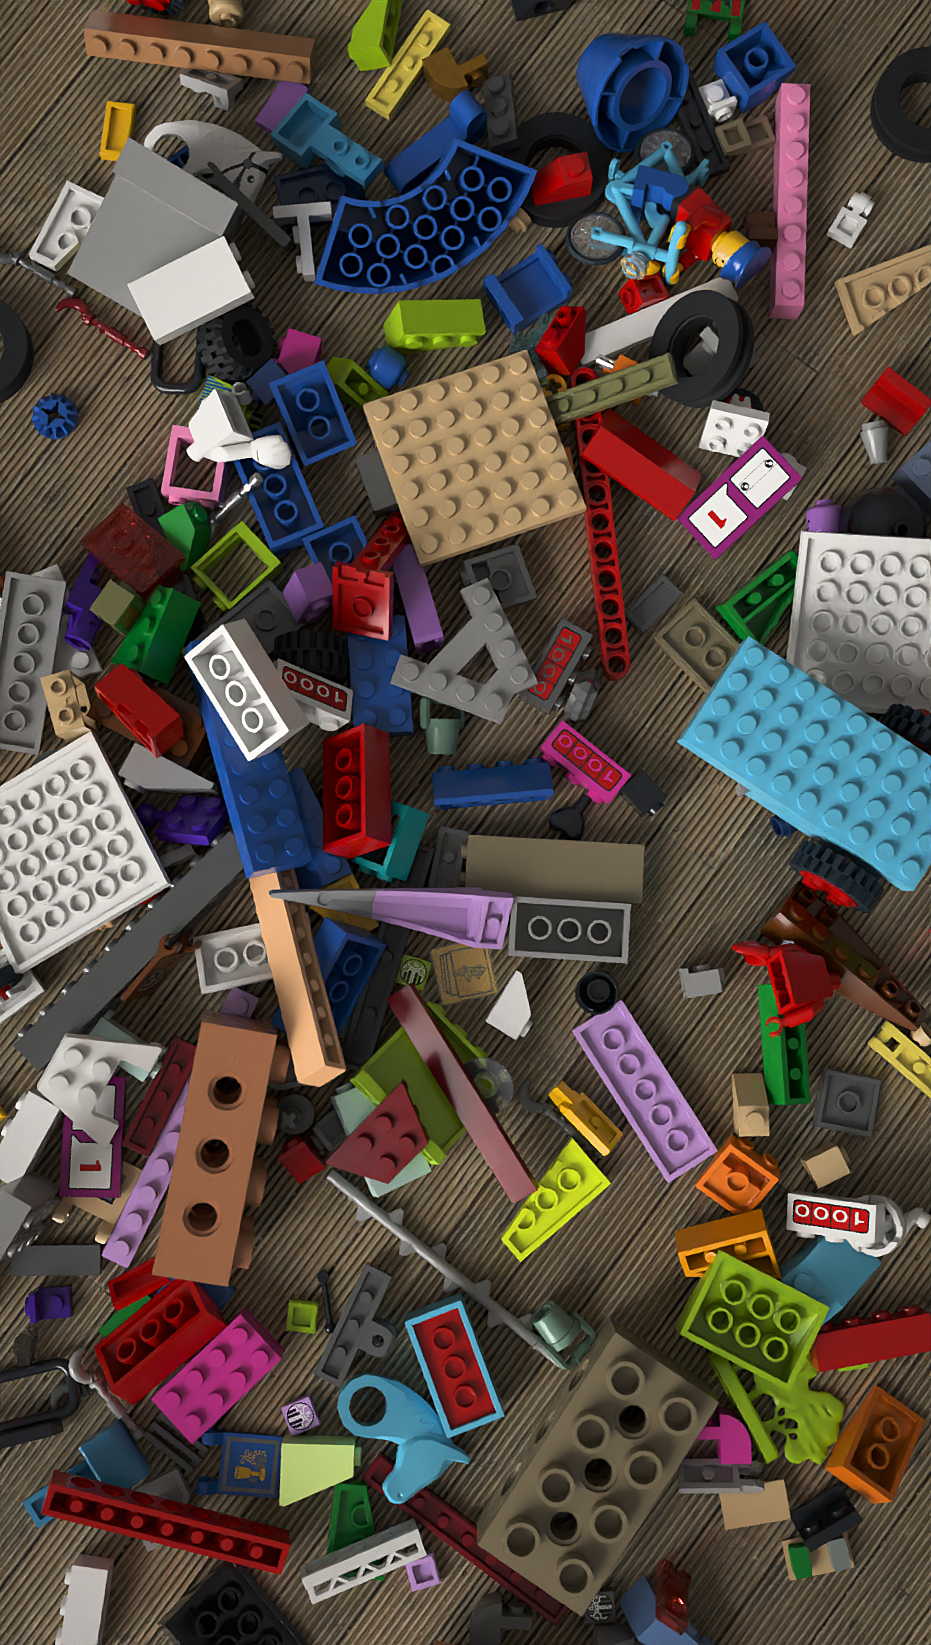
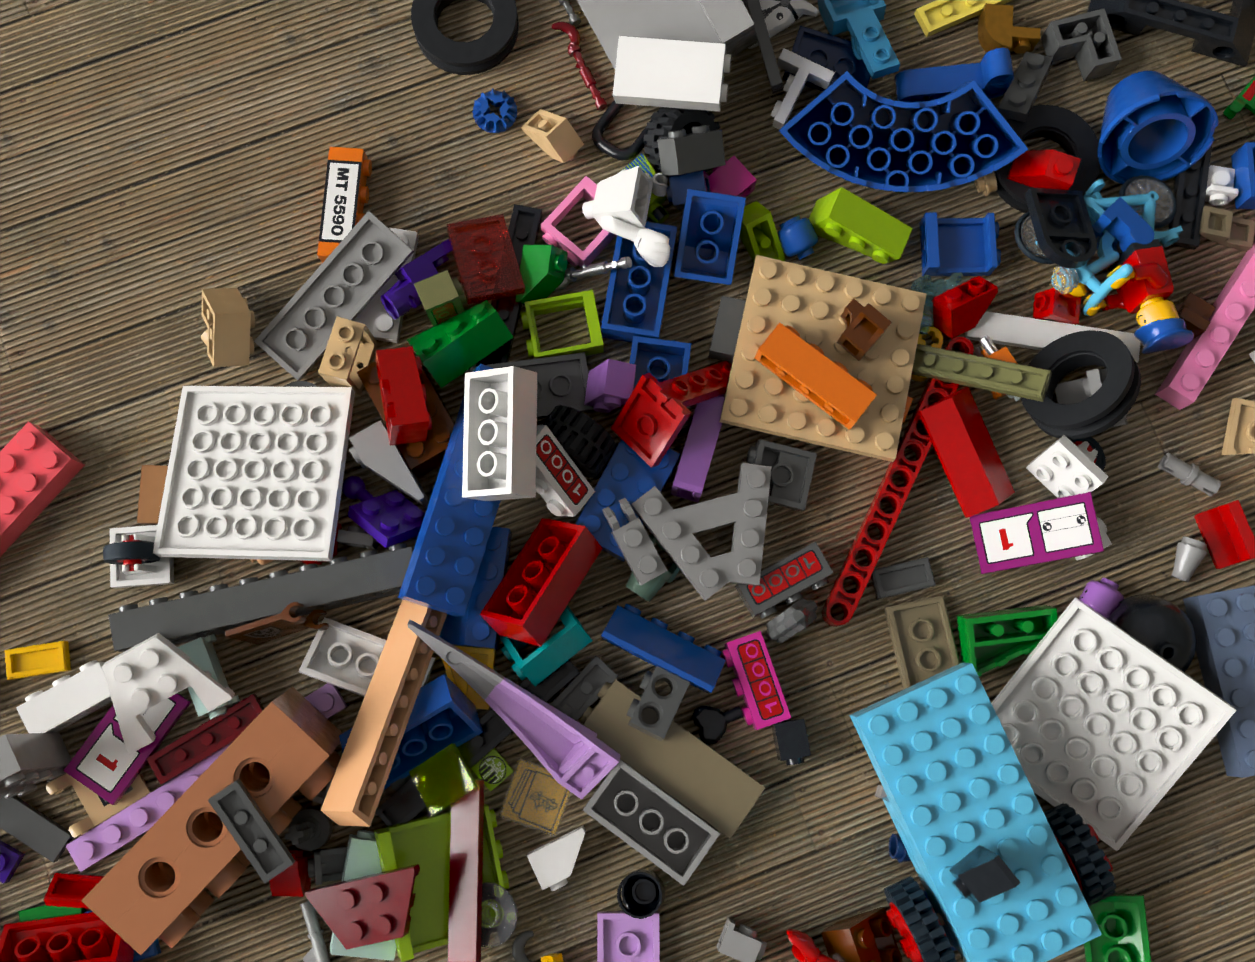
camera: 30 degrees right, 5 degrees down
(120, 406) = (553, 135): none -> tan slope
(251, 348) = (691, 152): none -> dark grey brick
(253, 1132) = (251, 830): none -> dark grey plate
(378, 1002) = (443, 779): none -> clear neon green piece
(414, 713) = (635, 544): none -> light grey hinge
(476, 477) = (815, 375): none -> orange brick
(491, 412) = (863, 328): none -> reddish brown brick
(522, 830) = (663, 705): none -> dark grey brick
(531, 38) = (1087, 39): none -> dark grey brick
(604, 219) = (1062, 224): none -> black tile
(836, 369) = (1189, 474): none -> light grey pin
(856, 798) = (982, 875): none -> black slope

